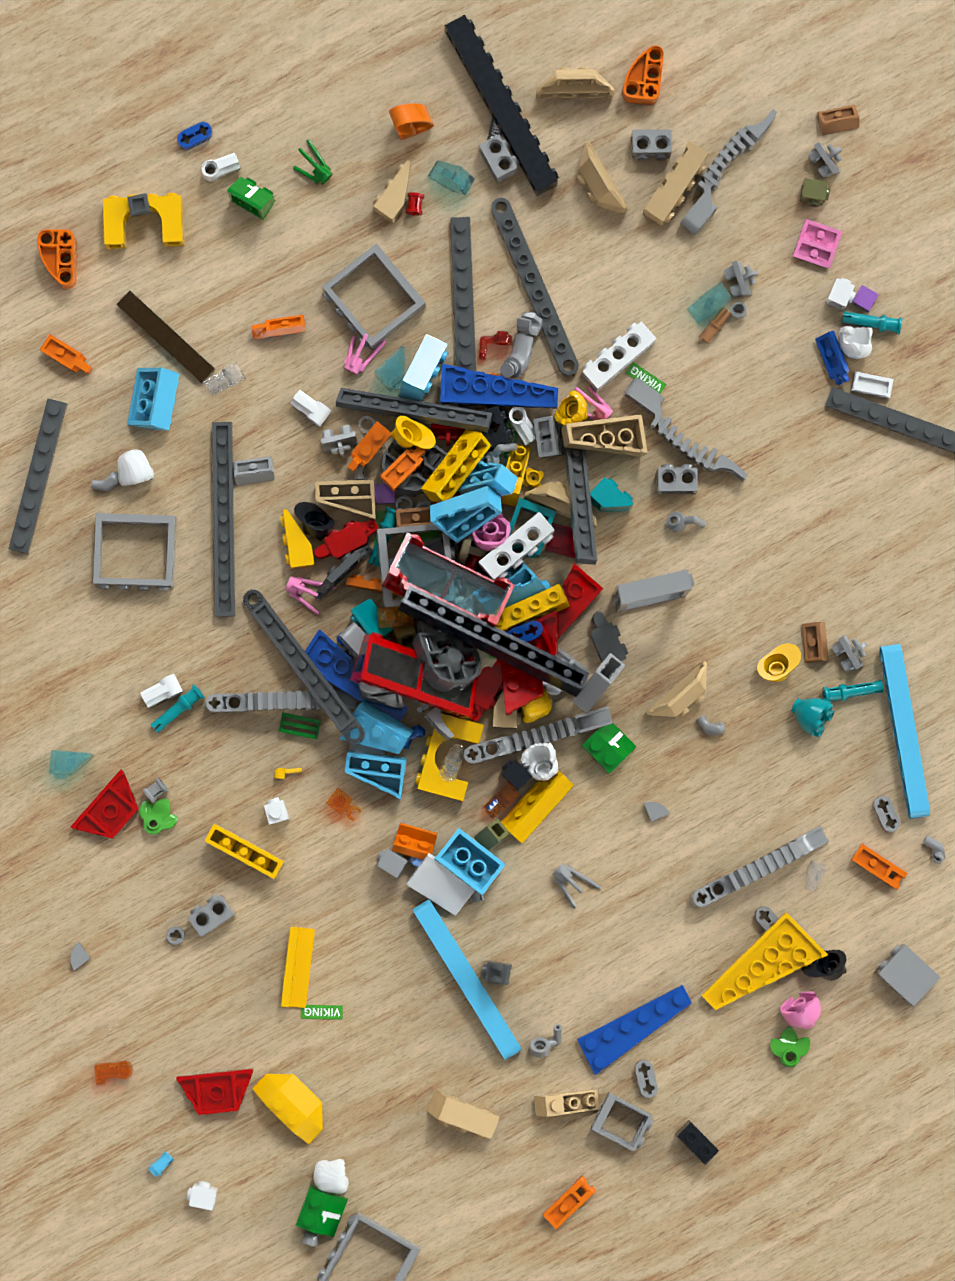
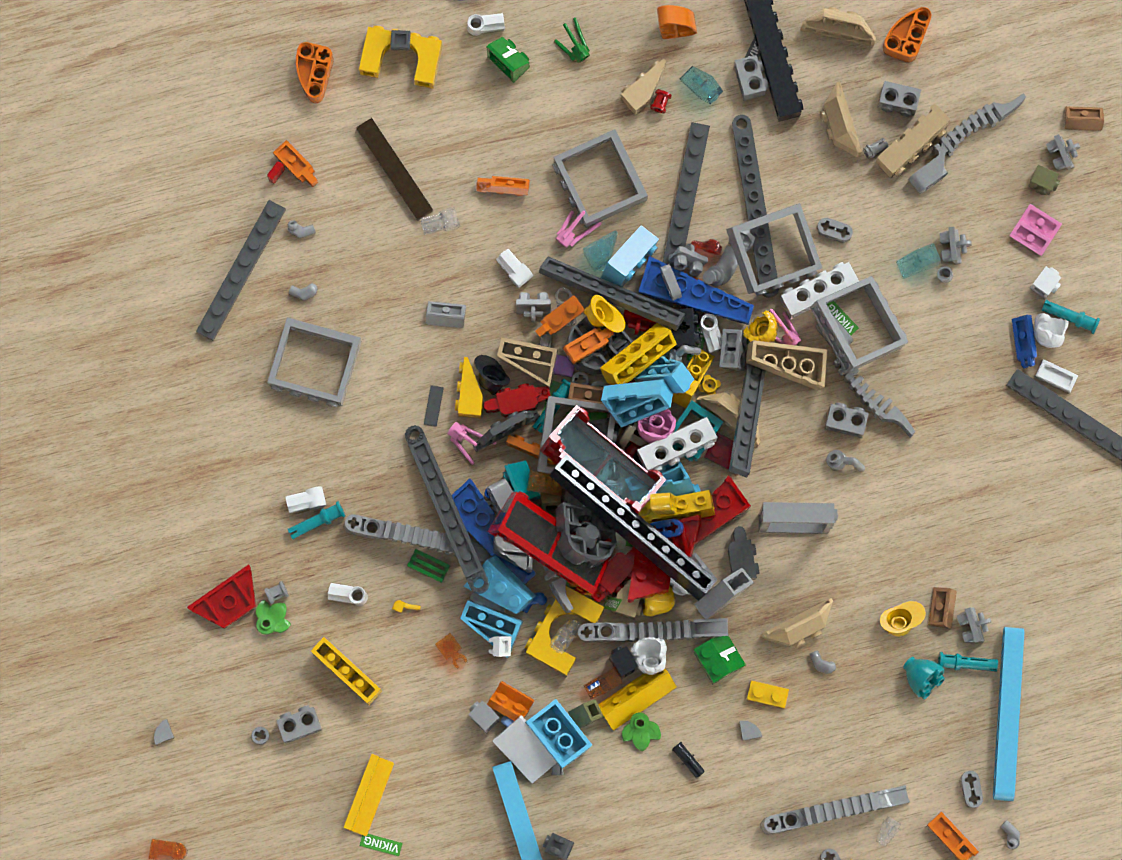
camera: 20 degrees right, 5 degrees down
(47, 369) = (276, 172): none -> red tile
(67, 763) = (200, 546): clear light blue slope -> none
(86, 422) = (300, 231): none -> light grey arm
(133, 468) = (333, 284): white hair -> none
(153, 398) = (368, 223): medium azure slope -> none
(223, 519) = (405, 353): dark grey plate -> none
(224, 774) = (345, 594): none -> white piece
(264, 565) = (433, 405): none -> dark grey sticker
(276, 811) = (386, 641): white brick -> none
(392, 790) = (501, 646): none -> white tile
(470, 385) = (670, 282): none -> light grey beam
(480, 355) = (687, 257): none -> light grey hips
(490, 719) = (612, 603): none -> bright green sticker
(518, 610) = (663, 503): none -> yellow beam
(536, 344) = (743, 260): none -> light grey window
(551, 840) = (641, 734): none -> bright green plate
(563, 874) = (645, 770): light grey plant -> none
(603, 854) = (688, 759): none -> black axle
(609, 498) = (777, 422): teal slope -> none
(620, 287) = (833, 234): none -> light grey beam
(639, 200) = (875, 148): none -> light grey pin
(646, 398) = (836, 337): none -> light grey window
(665, 770) = (767, 694): none -> yellow plate
(714, 325) = (918, 283): medium nougat axle -> none
(865, 298) = (1069, 292): medium lavender tile -> none

